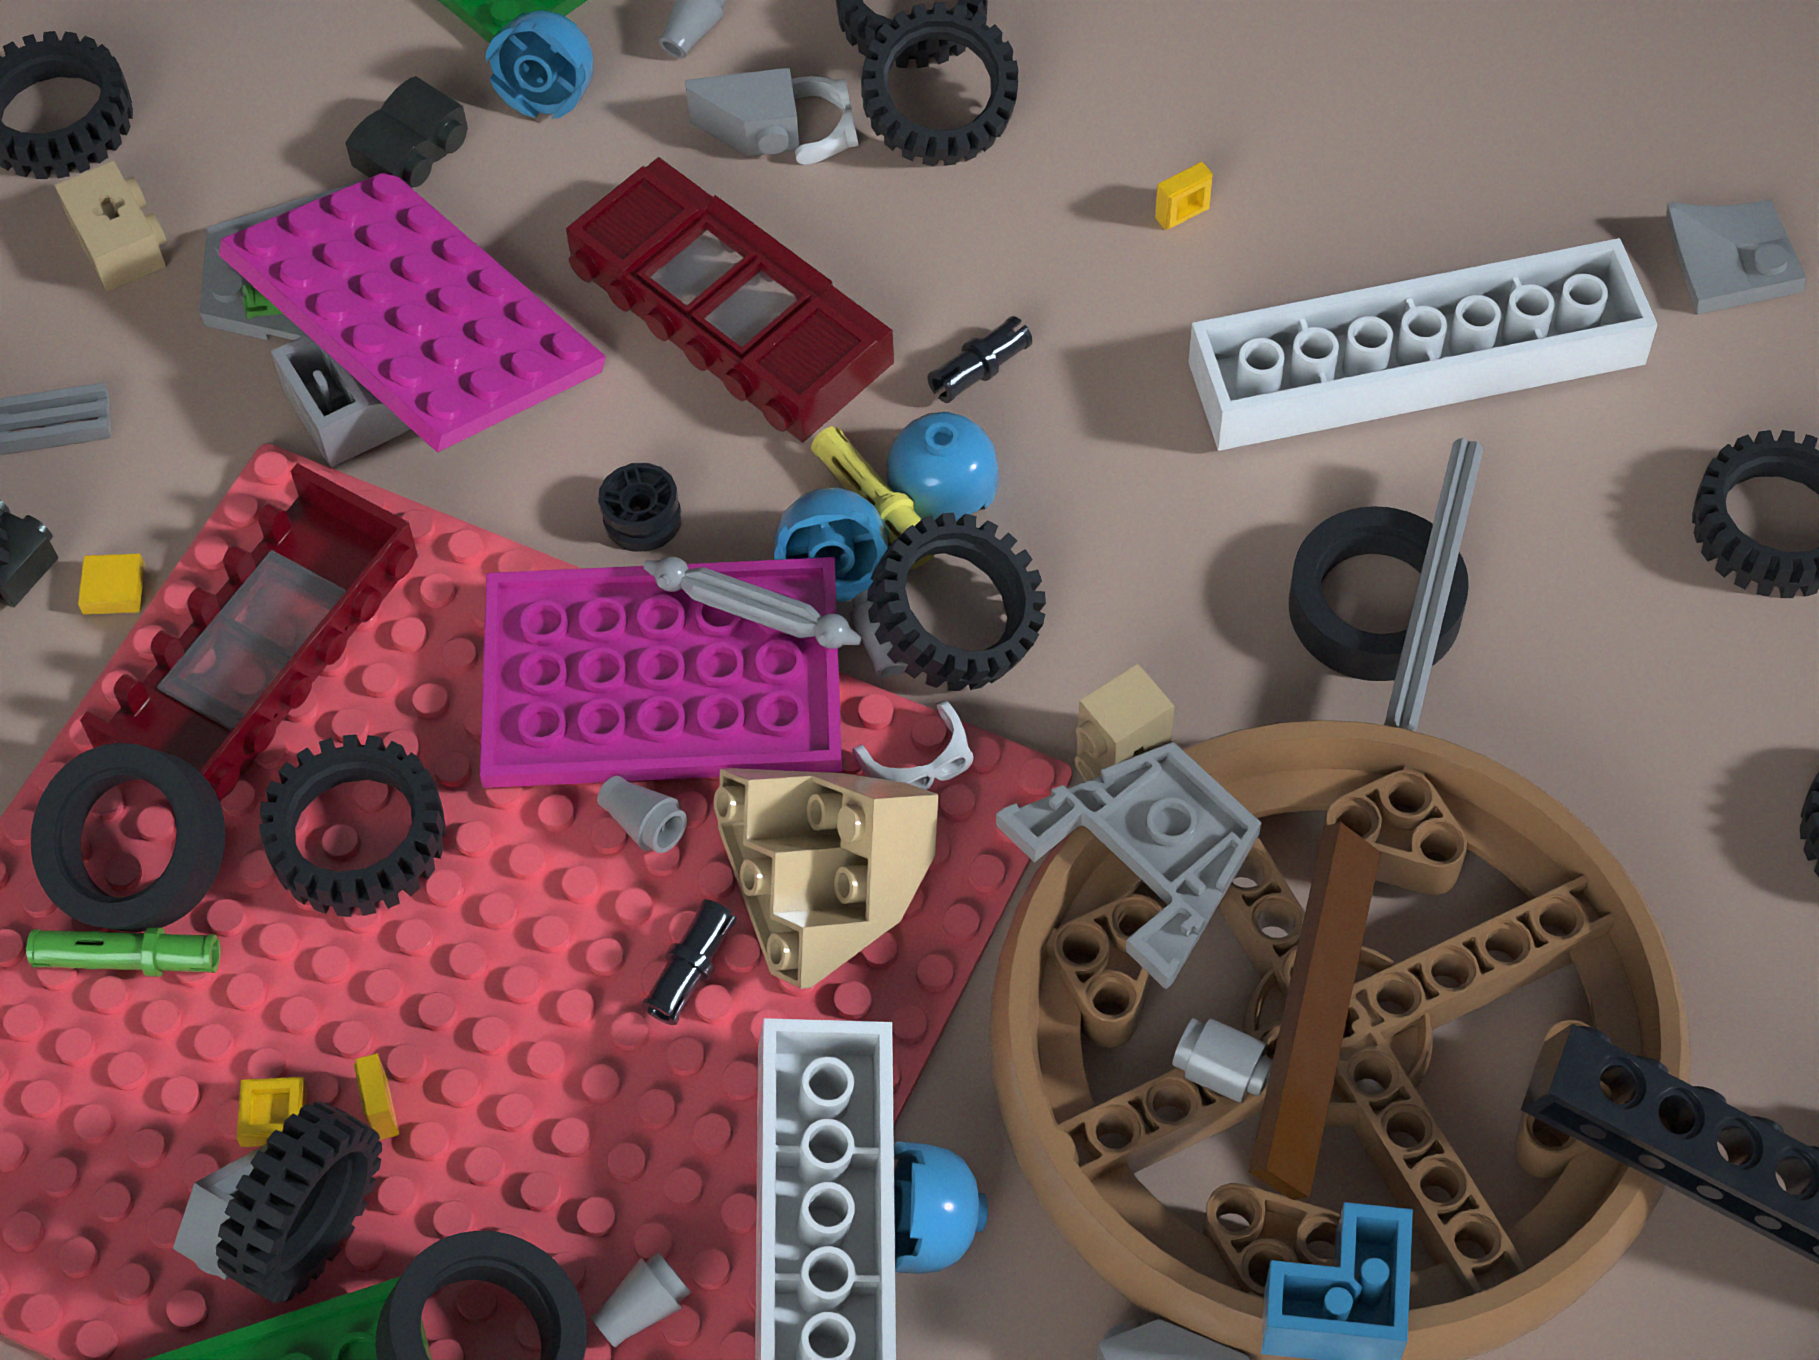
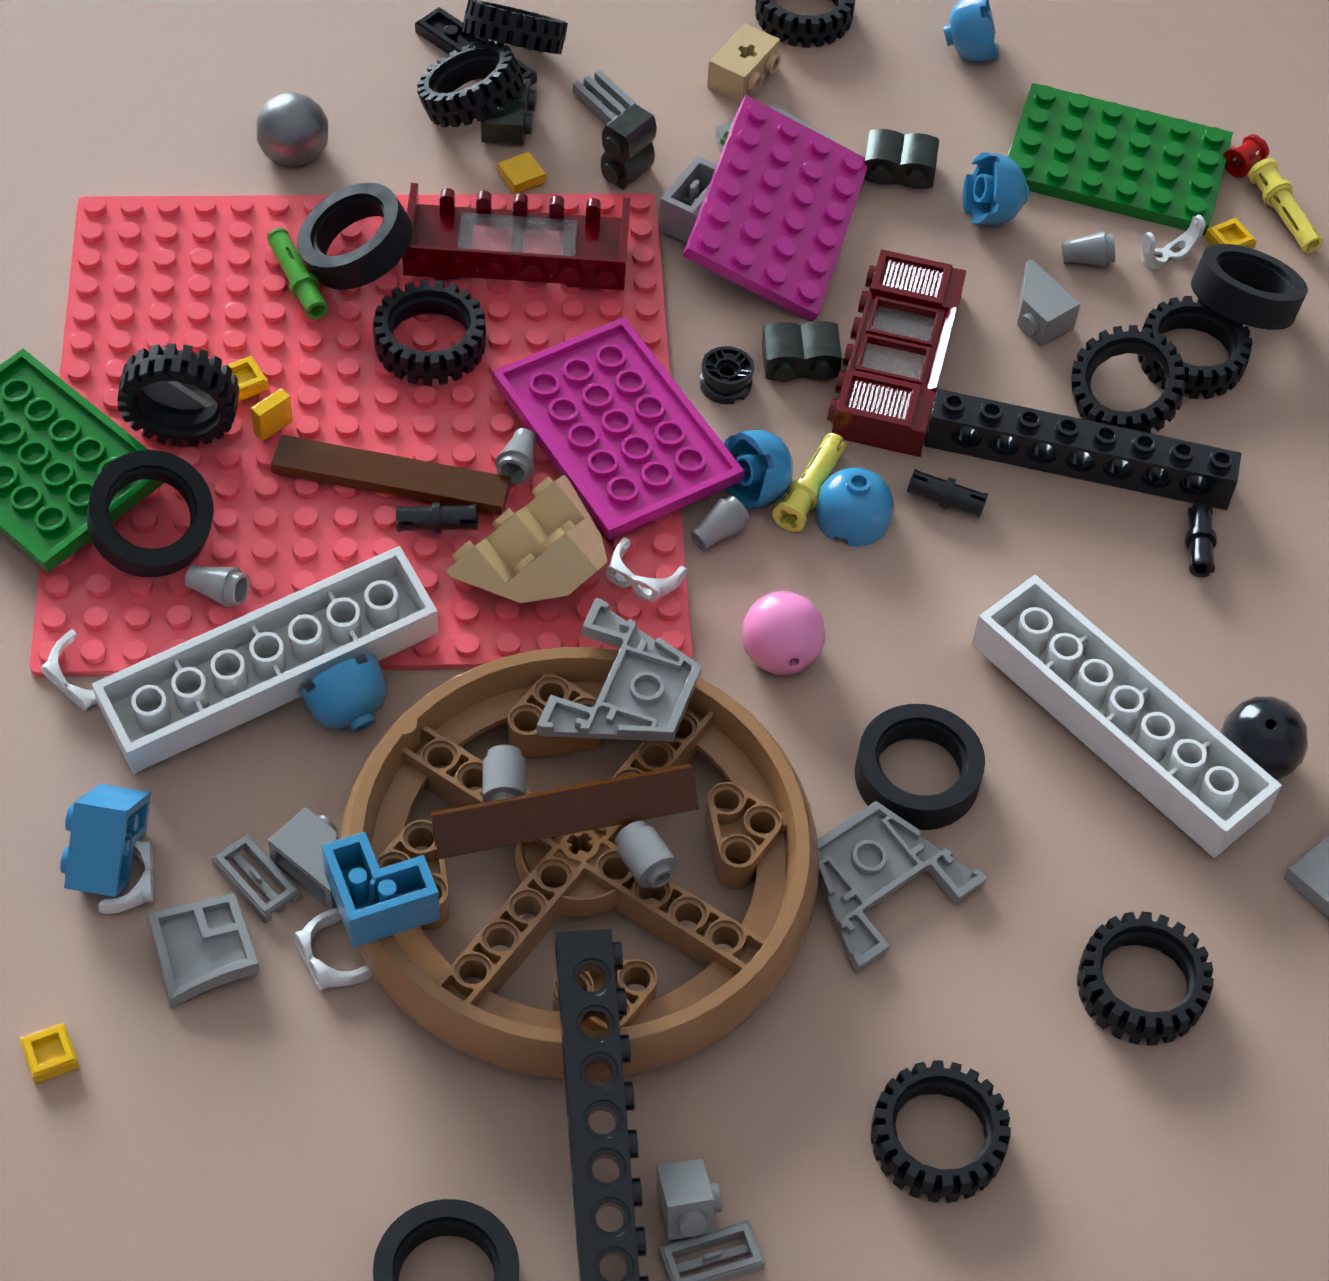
camera: 55 degrees right, 5 degrees down
(182, 426) = (628, 146): none -> pearl dark grey brick
(569, 992) = (390, 474): none -> reddish brown tile
(658, 403) = (801, 351): none -> pearl dark grey brick
(752, 602) = (681, 441): light grey wheel -> none
(844, 134) = (1064, 358): white cap -> none
(992, 557) = (774, 501): black tyre -> none
(1006, 182) = (1083, 449): none -> black brick
(1108, 631) = (783, 633): none -> bright pink piece
(1121, 722) = (721, 652): tan brick -> none
(1183, 195) = (1148, 546): yellow tile -> none
(1200, 141) = (1201, 540): none -> black pin
(1423, 945) = (645, 855): none -> light grey brick
(1434, 585) = (931, 782): light grey axle -> none
(1491, 704) = (870, 861): none -> light grey wing
(1529, 216) = (1269, 734): none -> black piece

